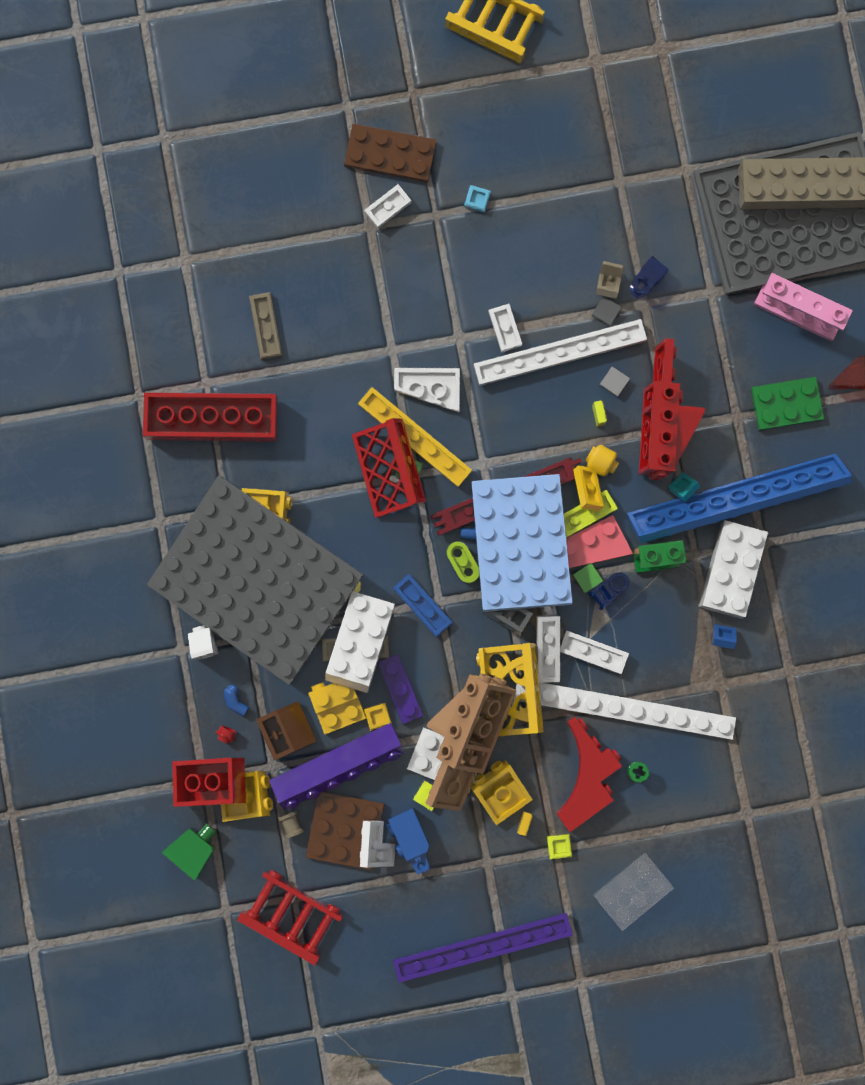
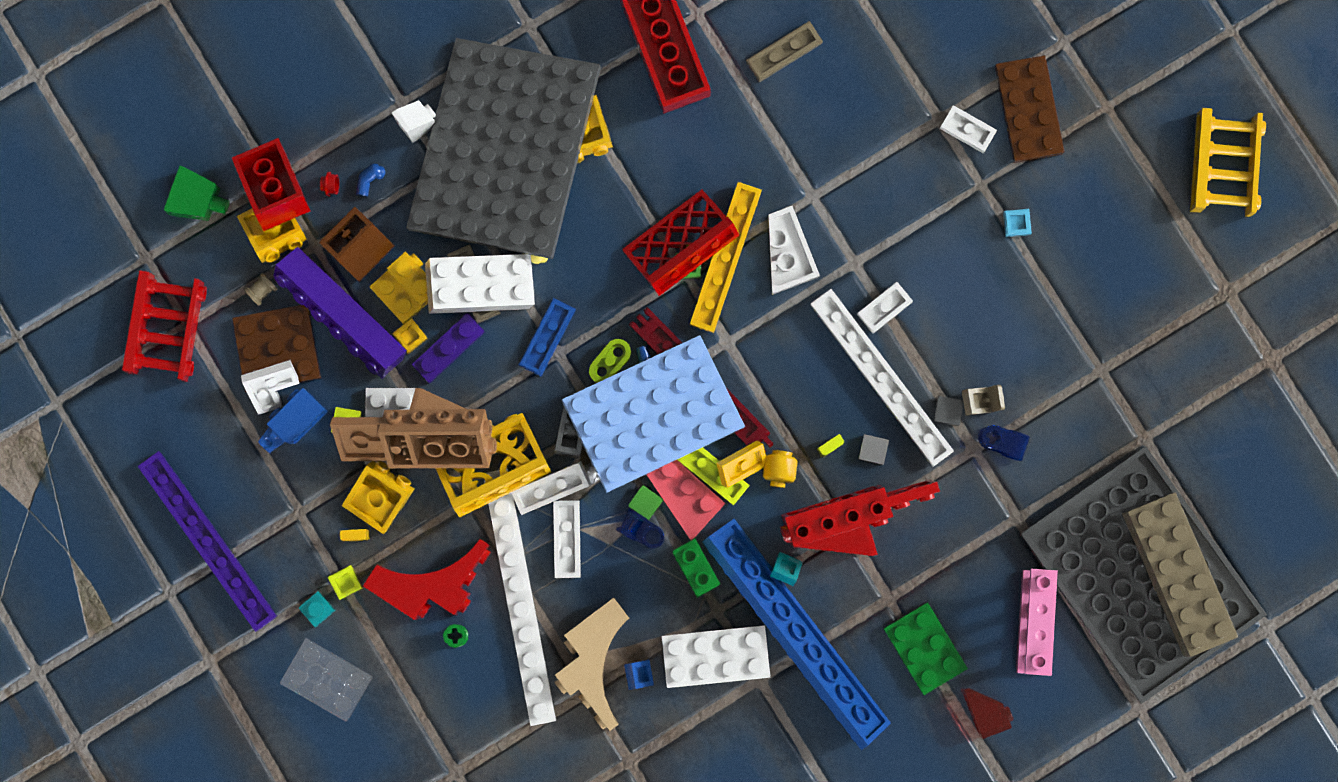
camera: 70 degrees right, 0 degrees up
(572, 877) = (317, 609): none -> teal plate
(706, 678) = (585, 673): none -> tan arch

